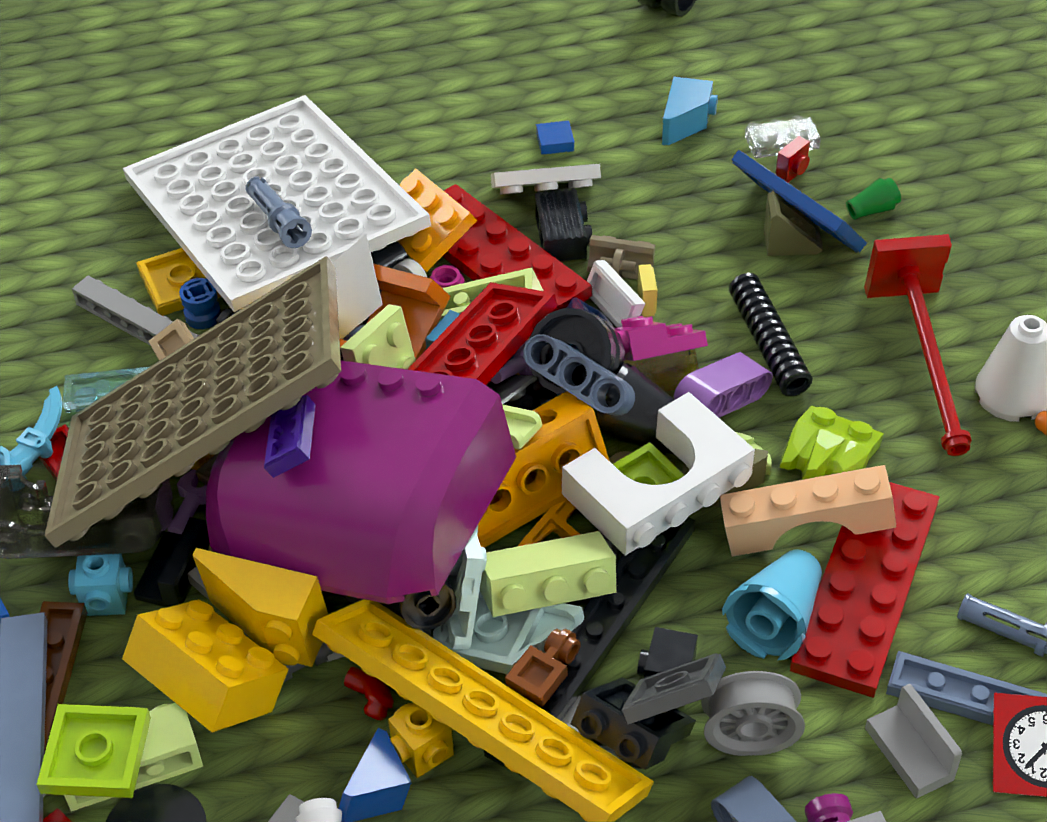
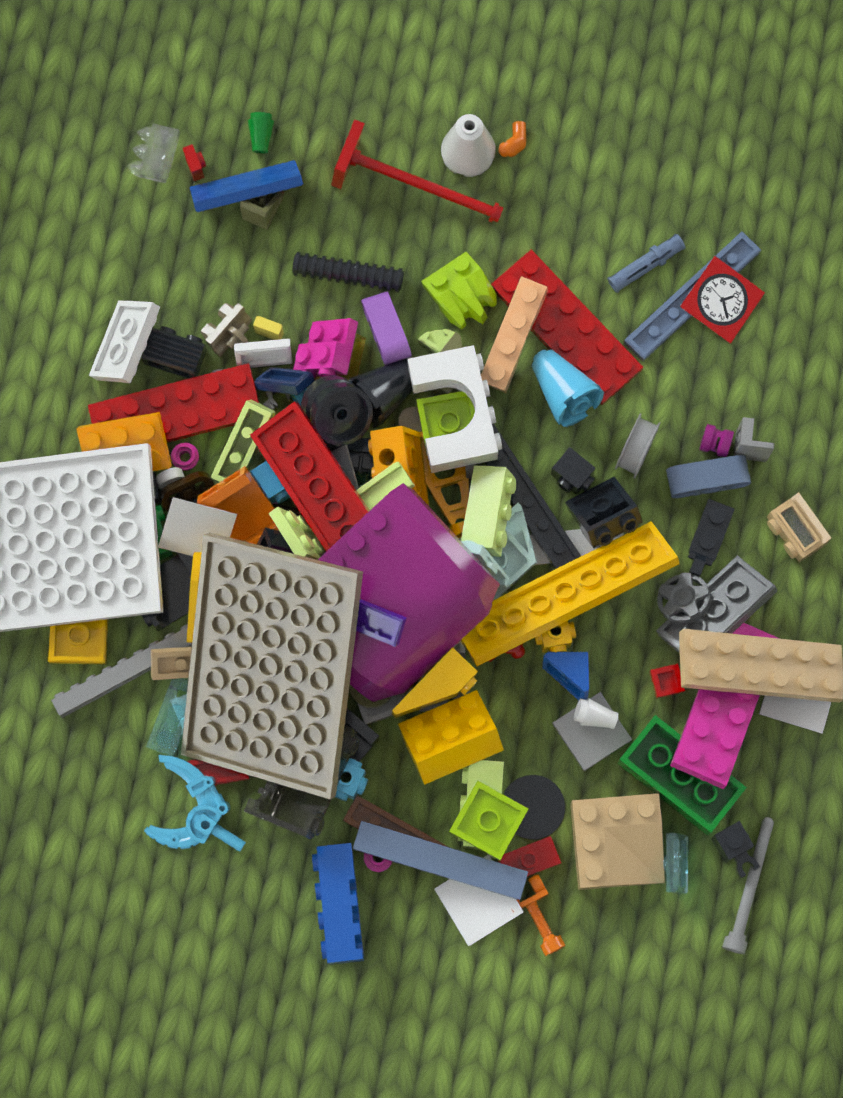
camera: 65 degrees left, 30 degrees up
(200, 303) = (124, 635): blue wheel -> none
(281, 216) = (96, 544): sand blue pin -> none
(541, 673) = (551, 549): dark orange plate -> none
(555, 137) = (70, 310): blue tile -> none
(560, 372) = (381, 423): sand blue beam -> none
(674, 688) = (611, 481): dark grey tile -> none
(687, 108) = (97, 203): dark azure slope -> none
(915, 743) = (687, 368): light grey panel -> none

